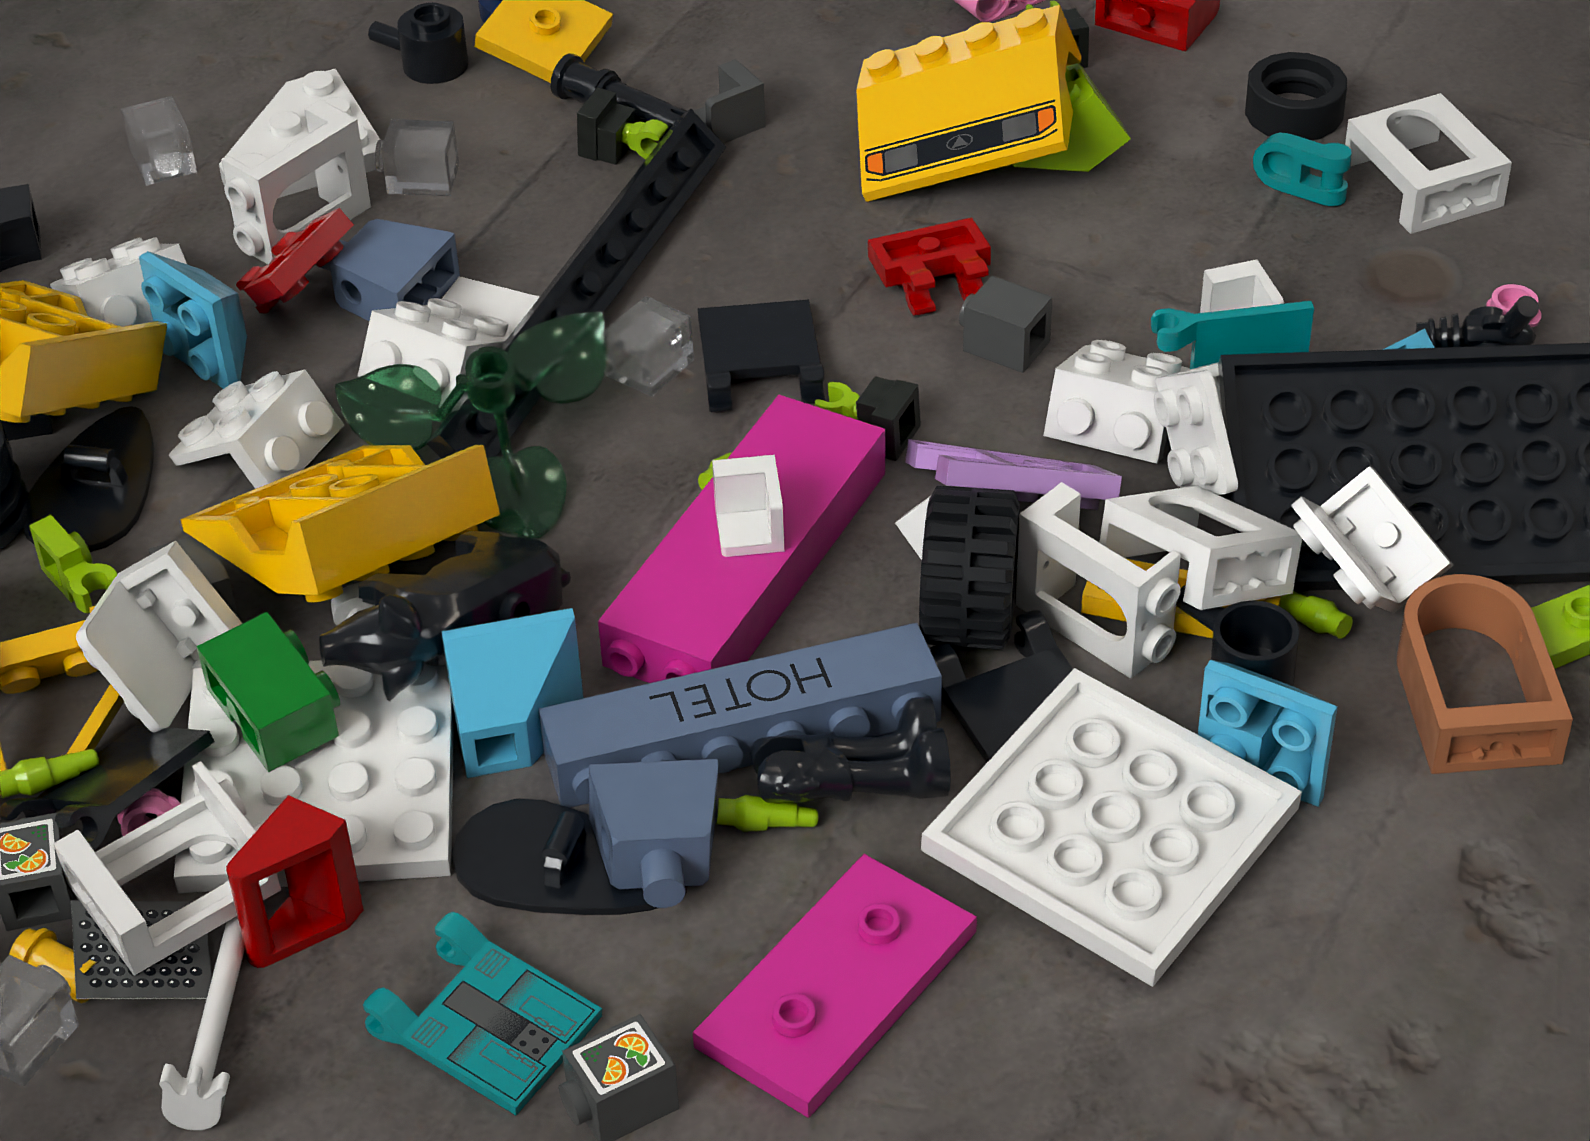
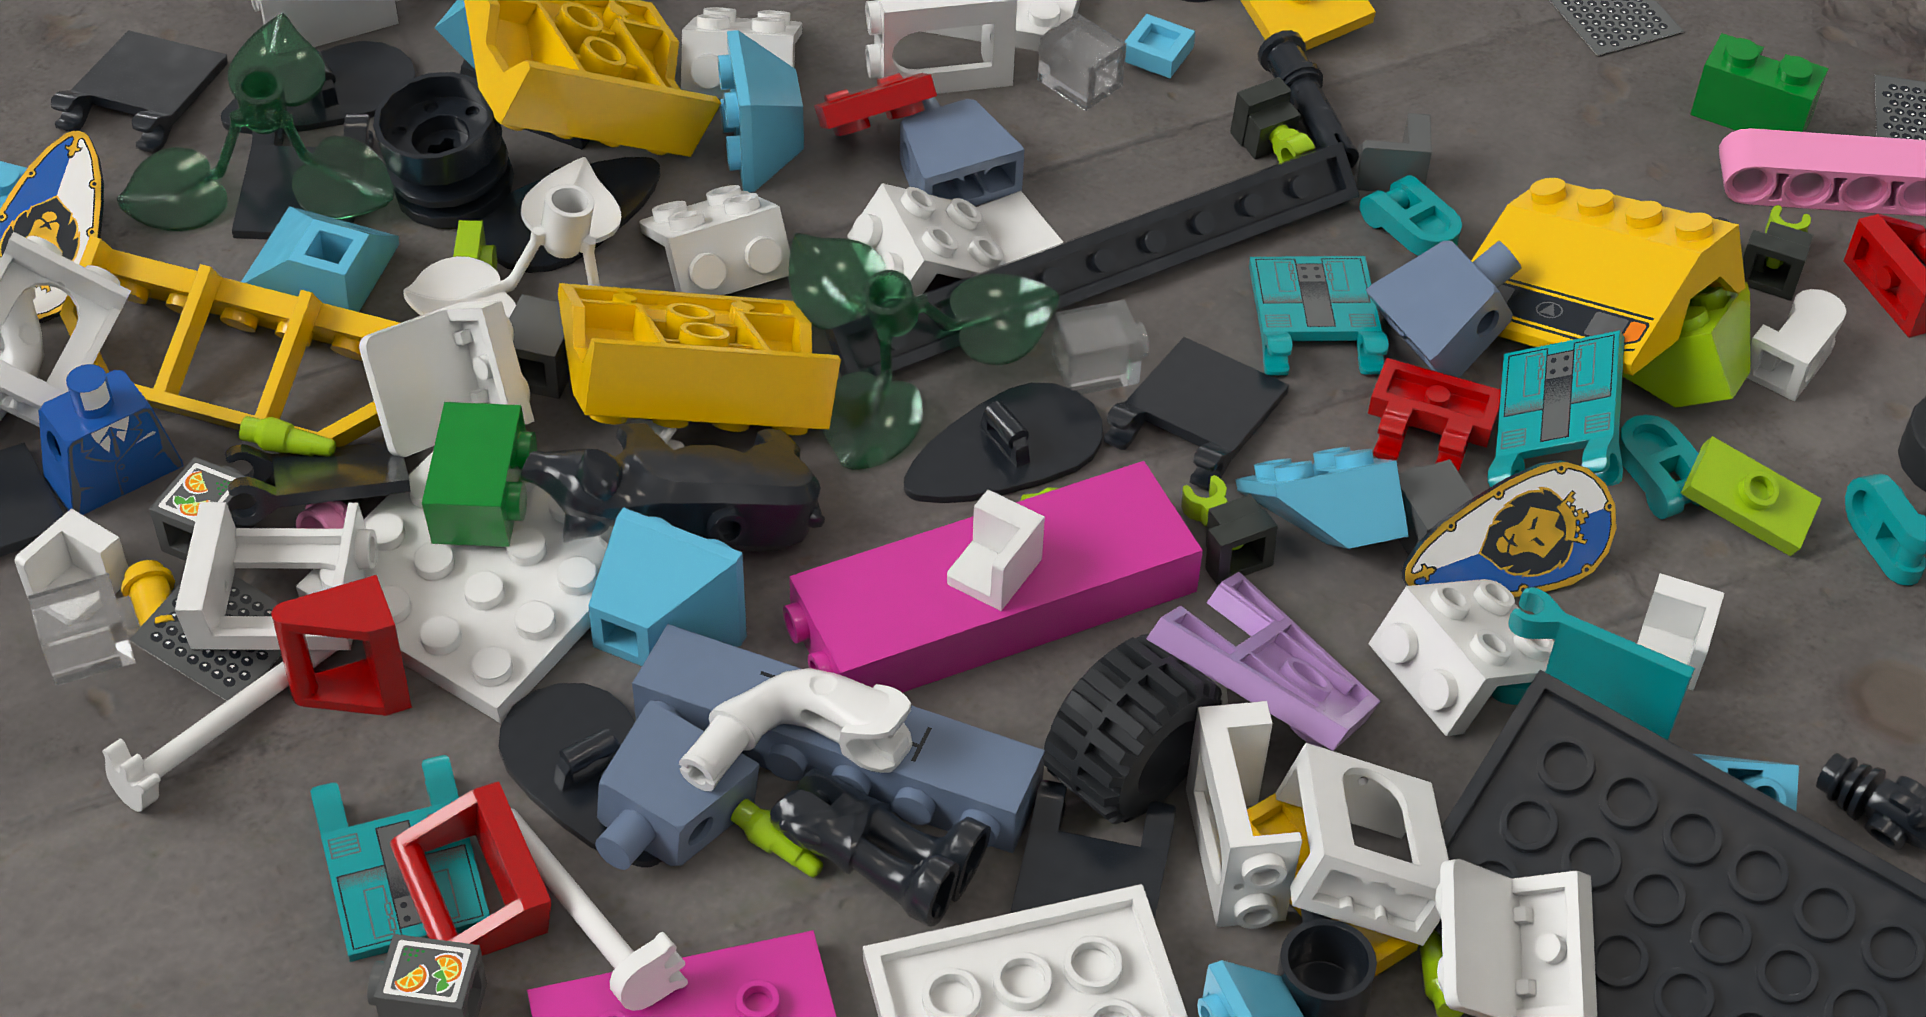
camera: 35 degrees right, 5 degrees up
(107, 469) = (565, 214): none -> white plant
(471, 117) = (1159, 45): none -> medium azure plate
(578, 949) = (489, 818): none -> red tile
(642, 454) = (1008, 445): none -> black shield
(742, 678) = (857, 717): none -> white piece
(770, 234) = (1315, 302): none -> teal flag
(783, 140) = (1412, 215): none -> teal plate
(783, 958) = (639, 975): none -> white piece
(878, 178) = (1447, 303): none -> sand blue torso
(933, 349) = (1338, 499): none -> medium azure slope
(1027, 198) = (1562, 402): none -> teal flag
(1085, 297) = (1523, 532): none -> shield
(1122, 210) = (1649, 452): none -> teal plate
(1131, 84) = (1793, 356): none -> white leg
(1192, 413) = (1482, 706): white bracket -> none
(1201, 196) = (1751, 496): none -> lime plate

